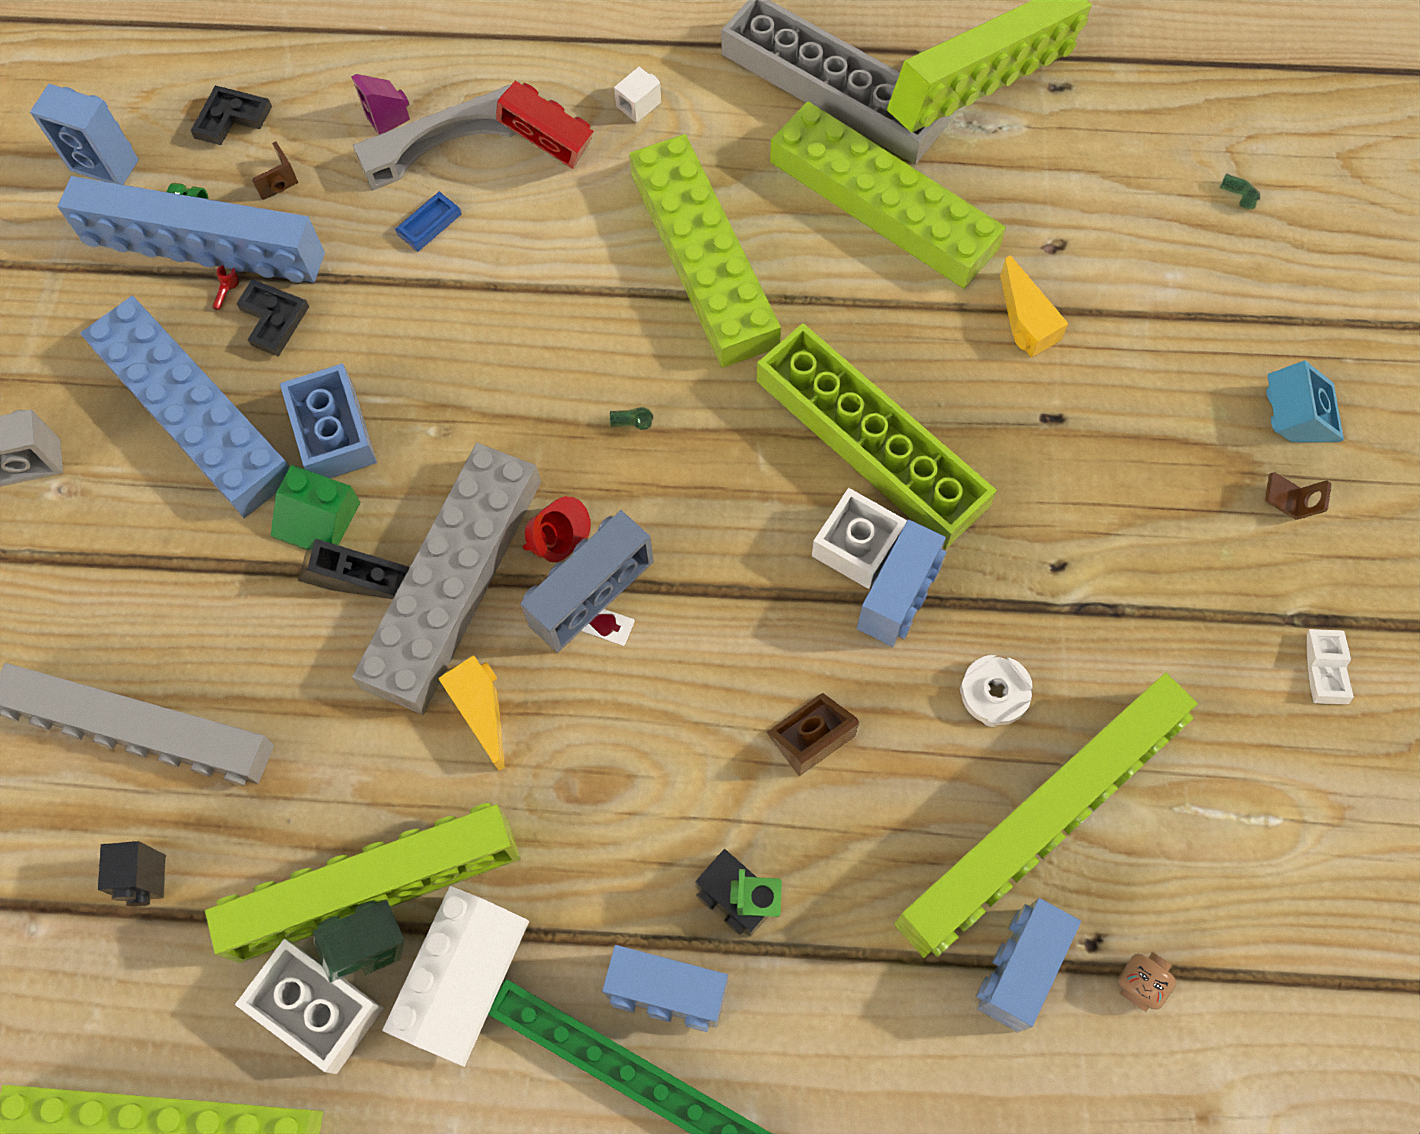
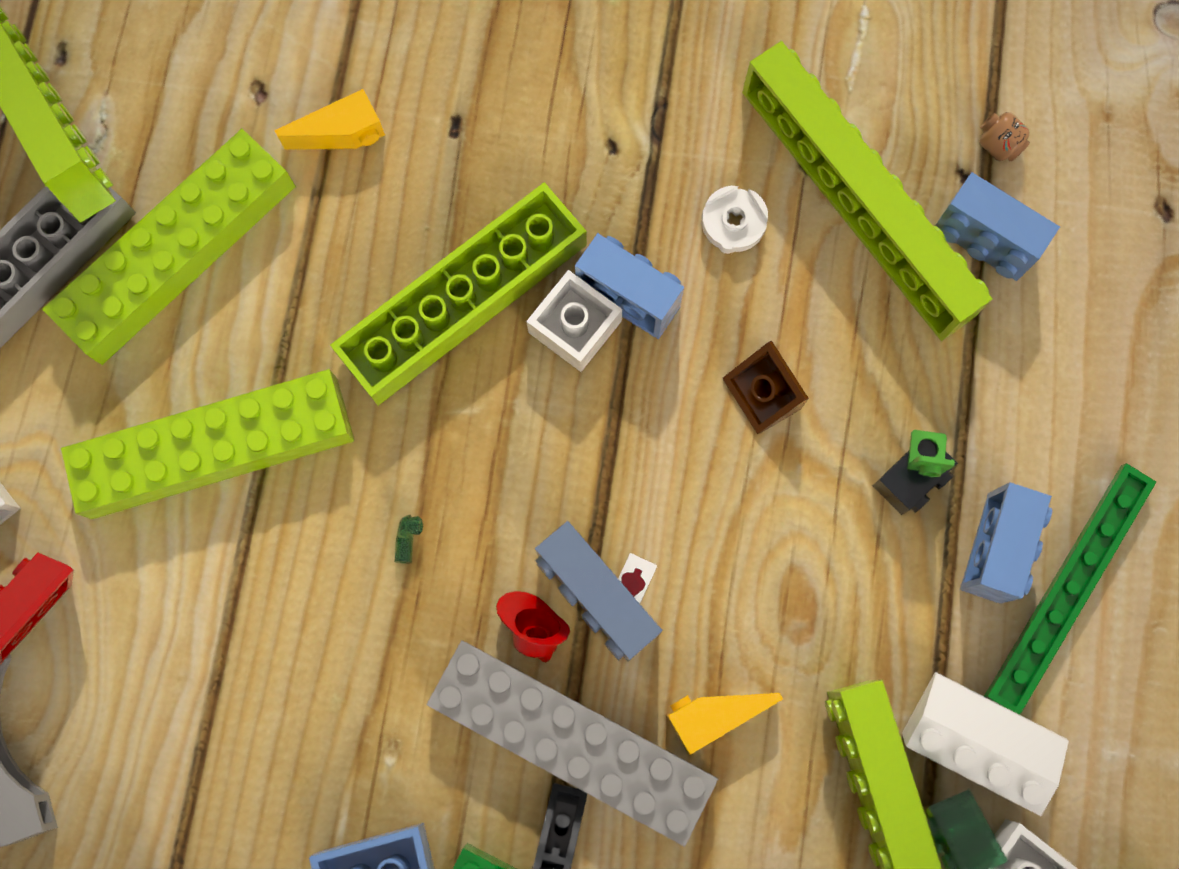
camera: 85 degrees left, 10 degrees up
(428, 221) = (115, 758): blue tile -> none

